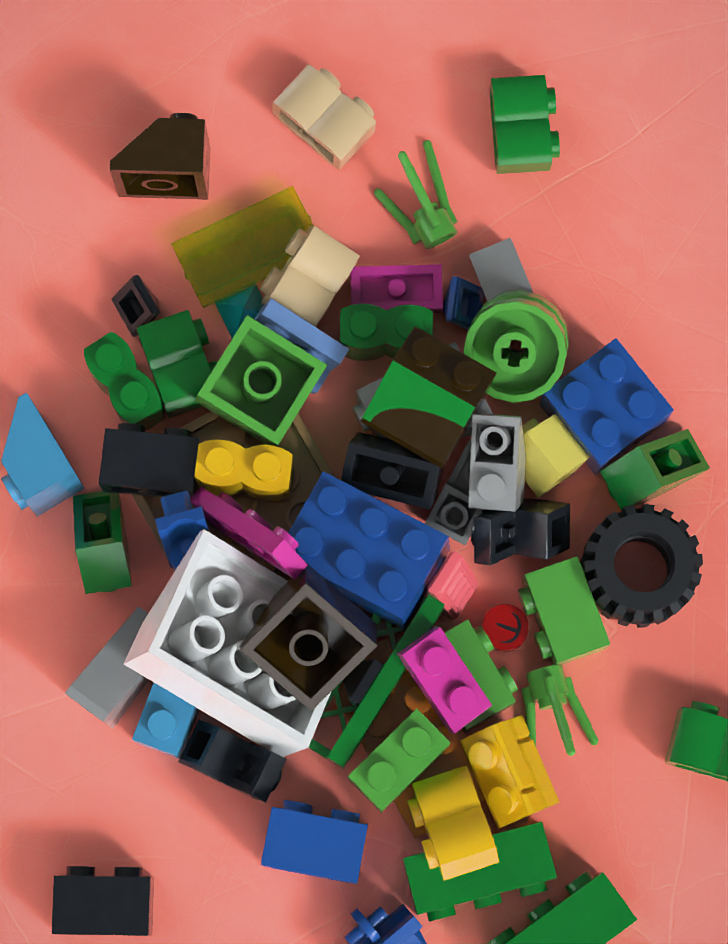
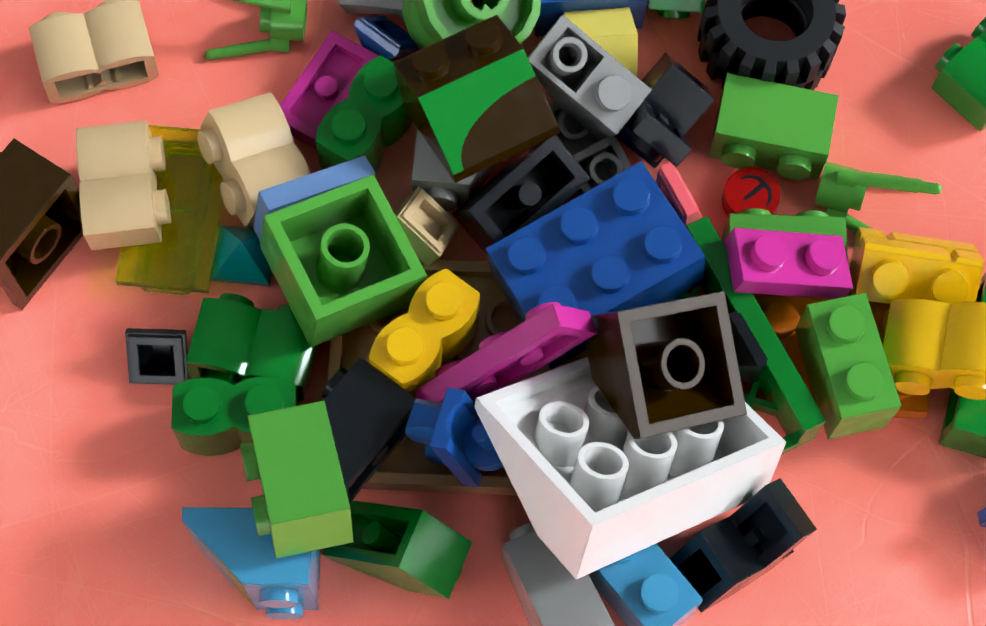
camera: 60 degrees left, 10 degrees down
(81, 452) = (299, 479): none -> bright green brick
(232, 203) = (120, 185): none -> tan brick
(314, 843) = (897, 501): blue brick -> none
(329, 418) = (426, 225): none -> tan tile

